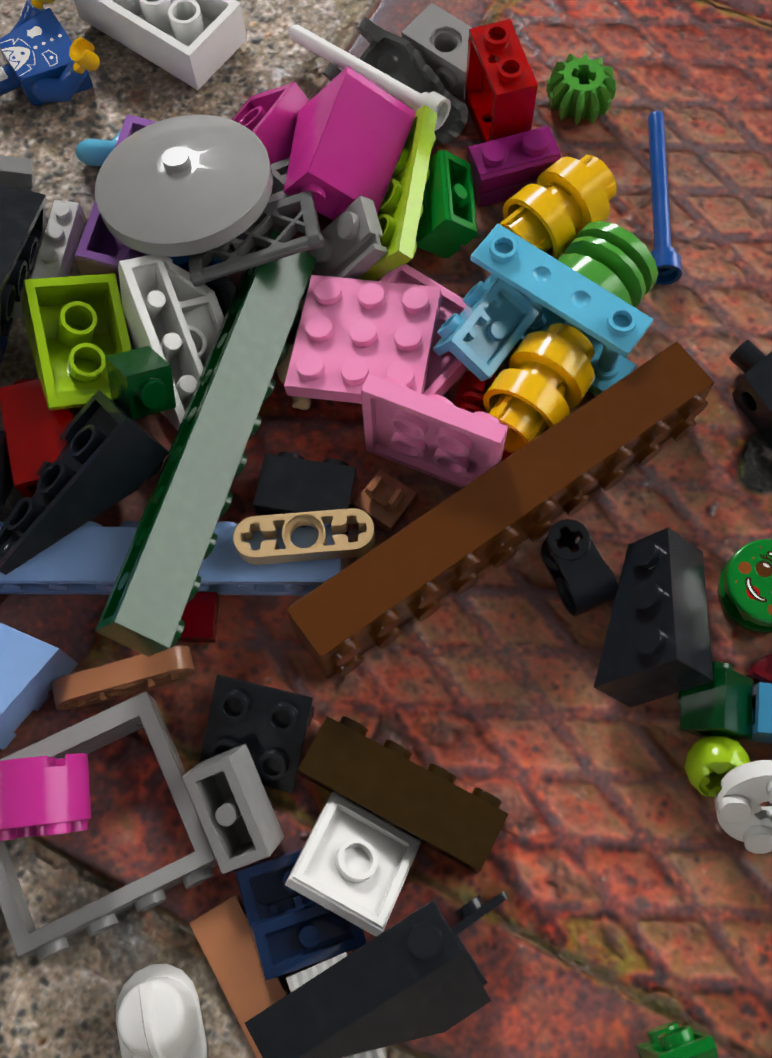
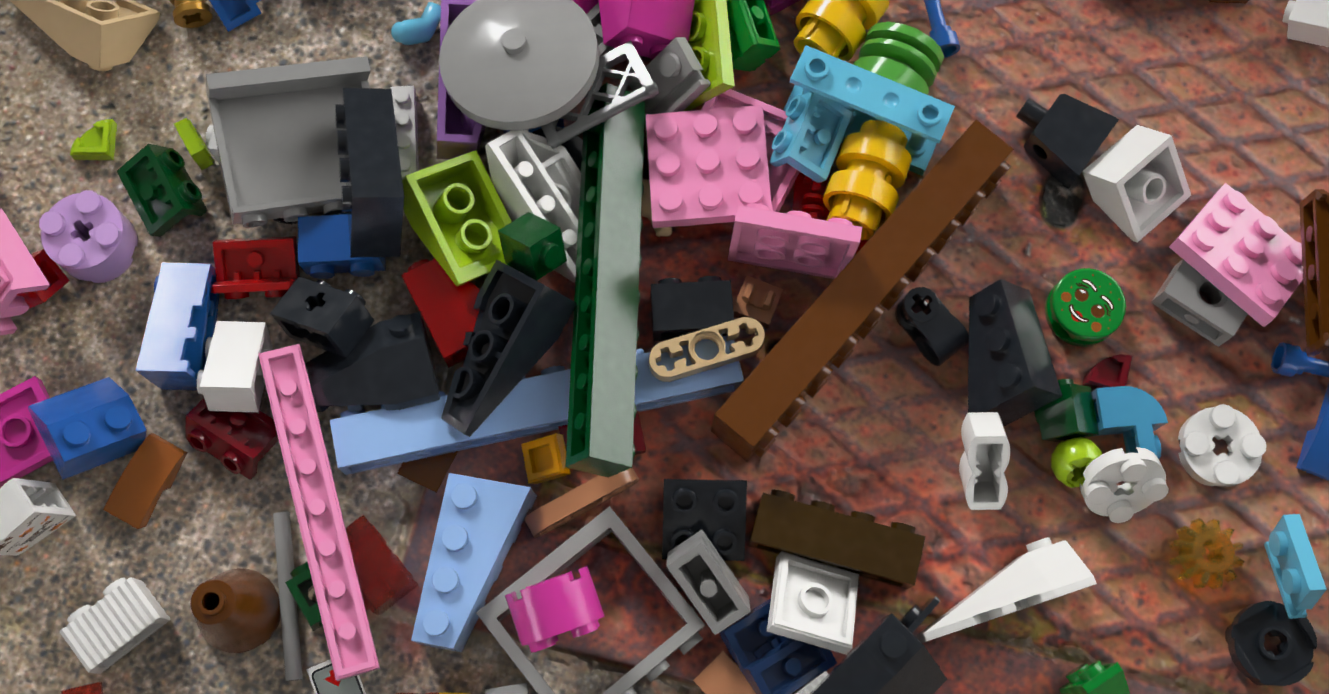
camera: 20 degrees left, 5 degrees up
(85, 622) = (545, 459): none -> light orange tile
(601, 738) = (984, 461): none -> white brick
(627, 899) = (1028, 580): none -> white wedge

